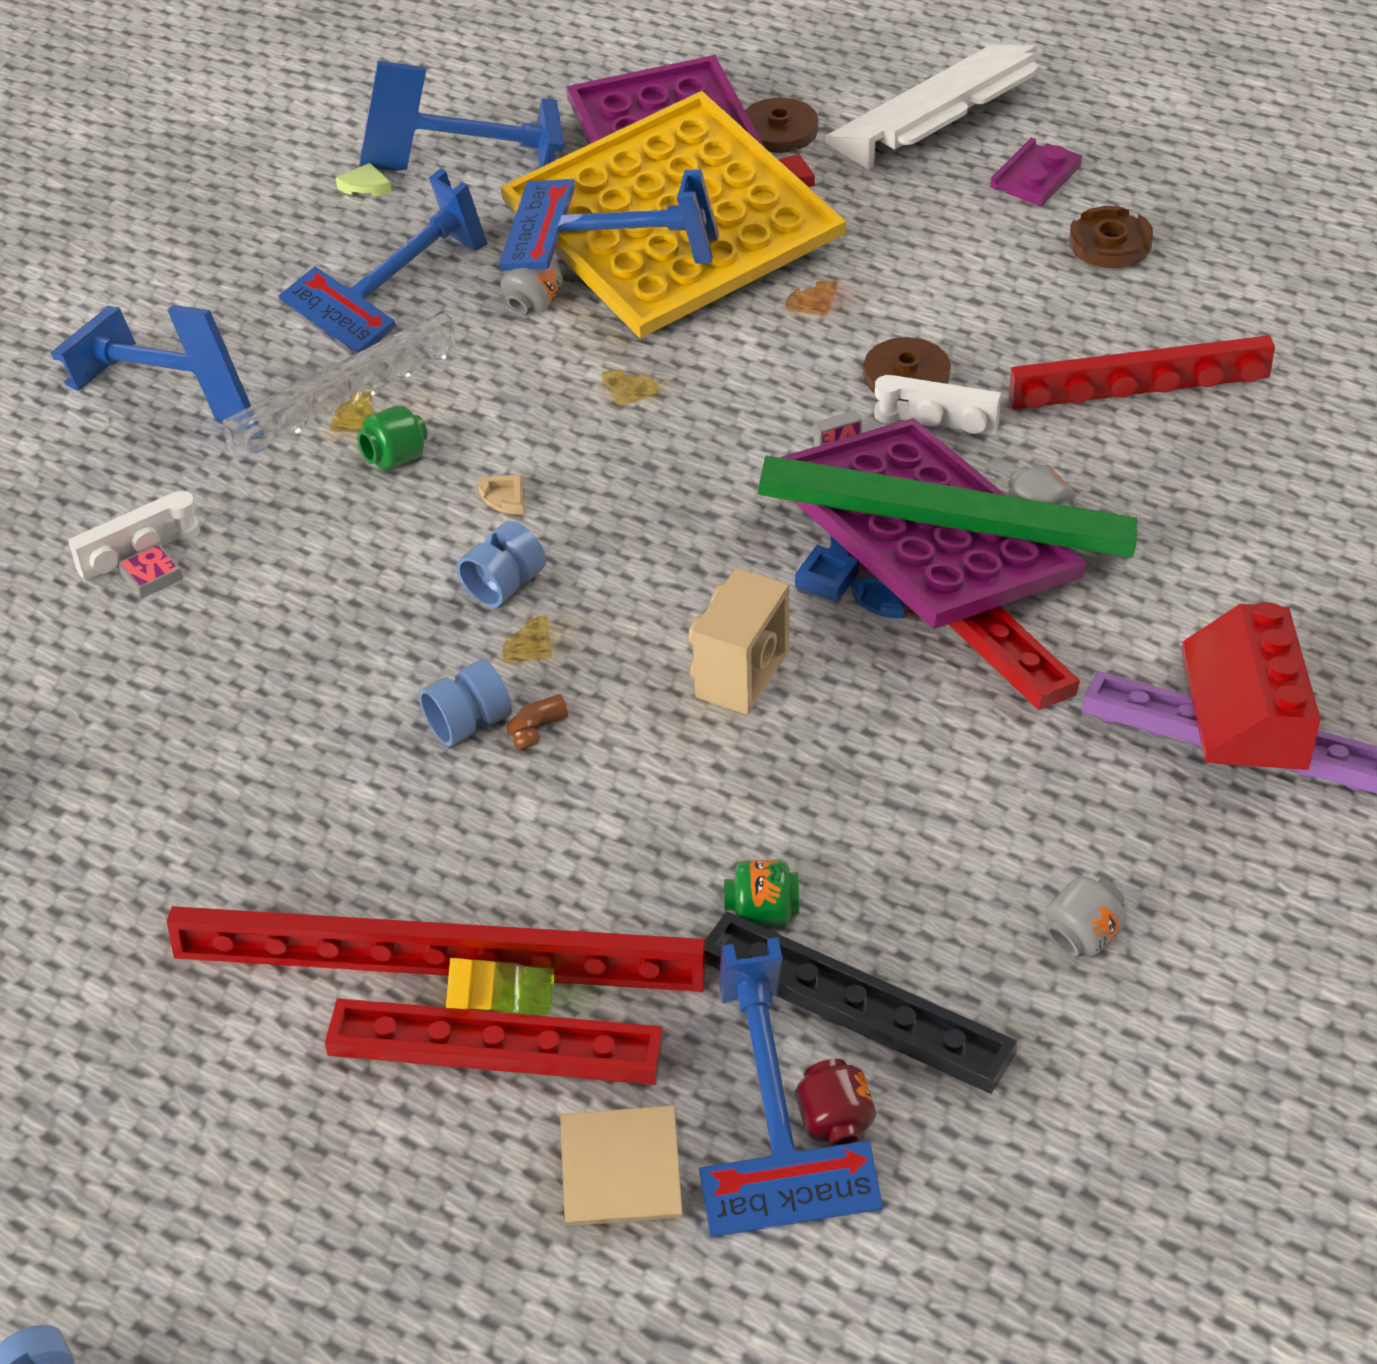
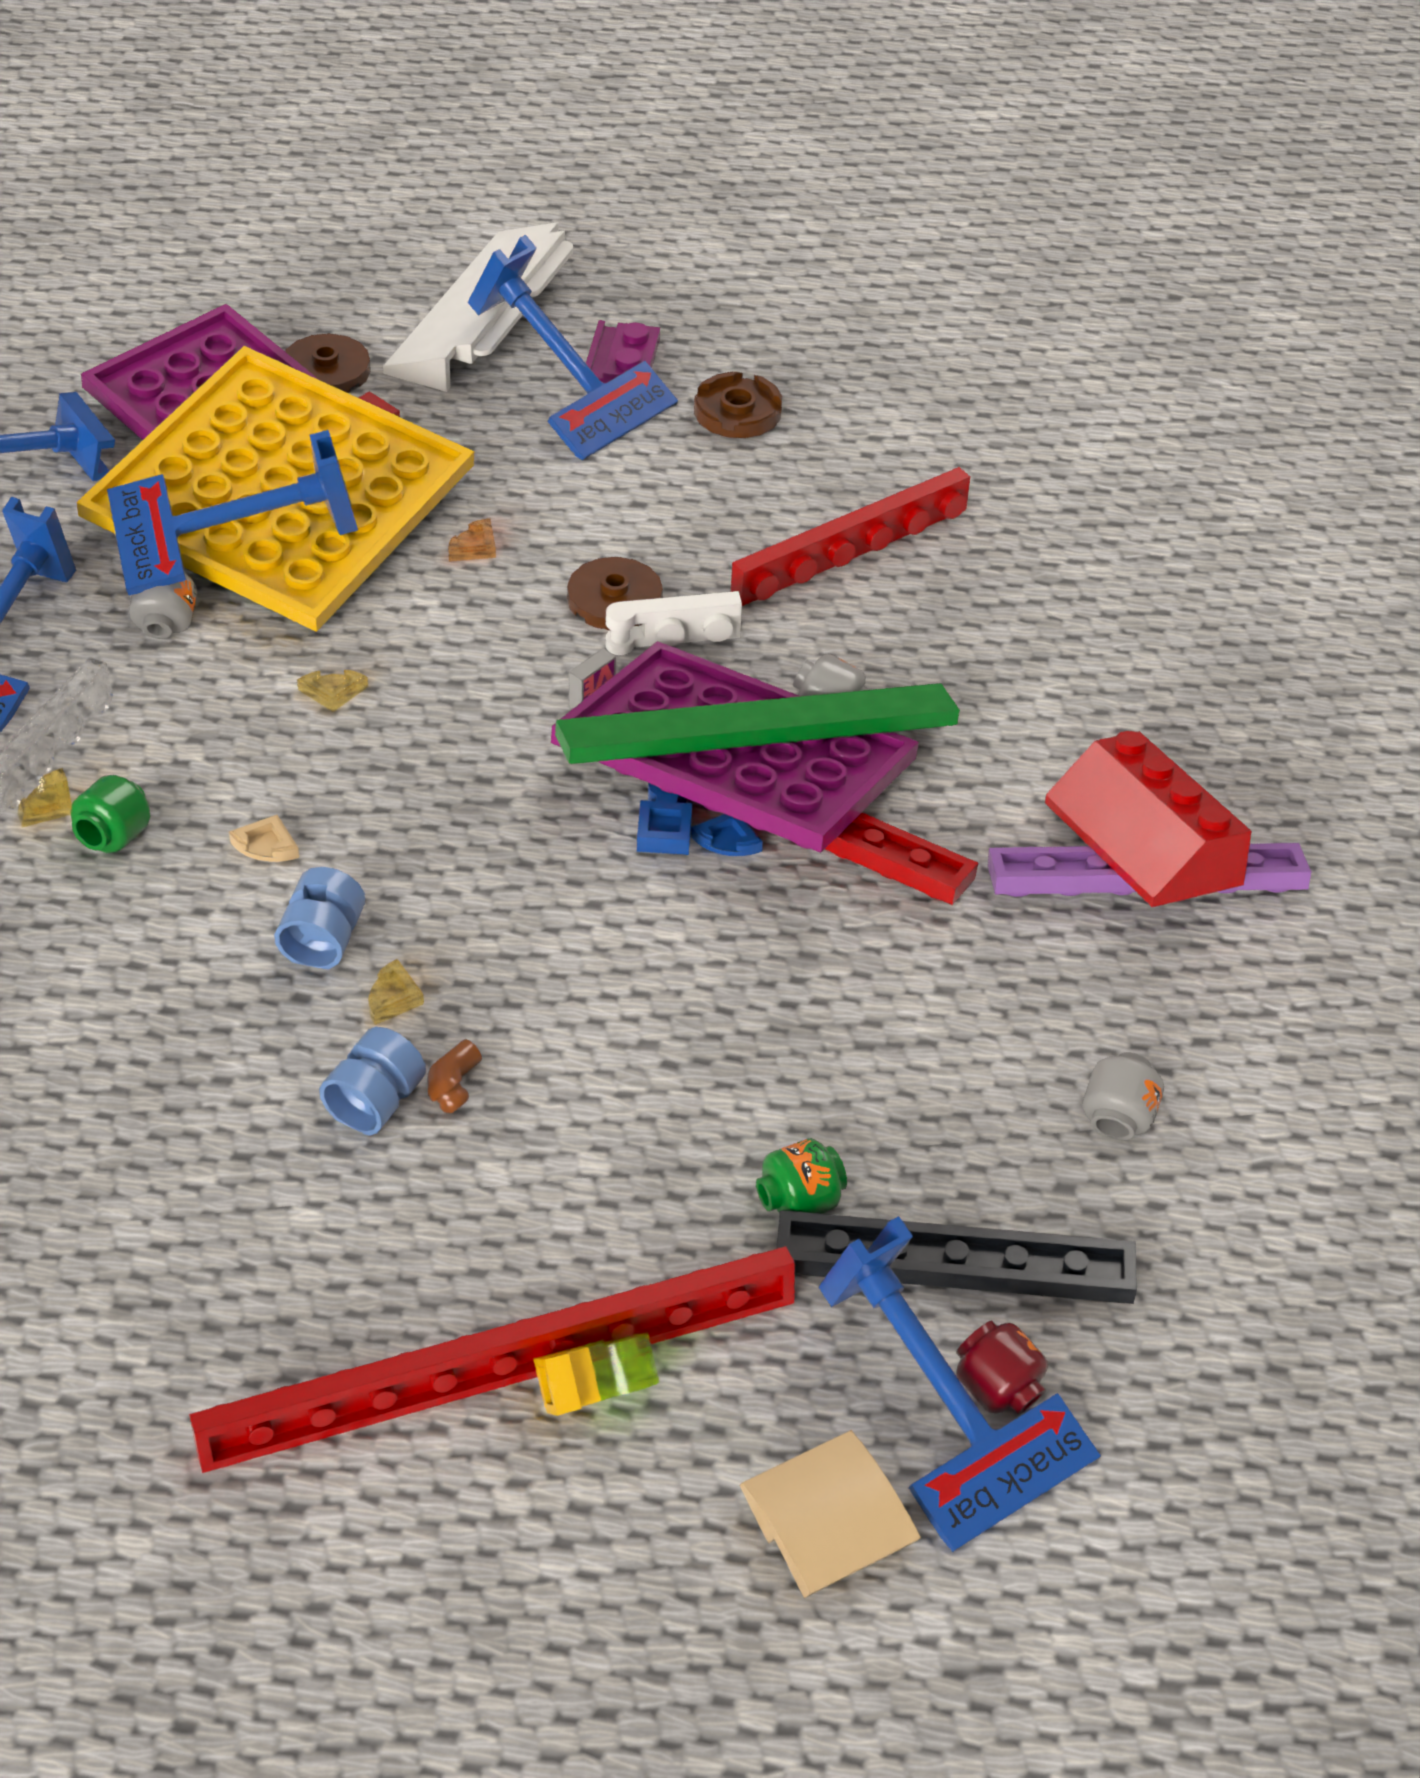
camera: 30 degrees left, 0 degrees up
(495, 1041) = (617, 1433): red plate -> none
(740, 640) = (631, 923): tan brick -> none
(994, 213) = (608, 407): none -> blue piece

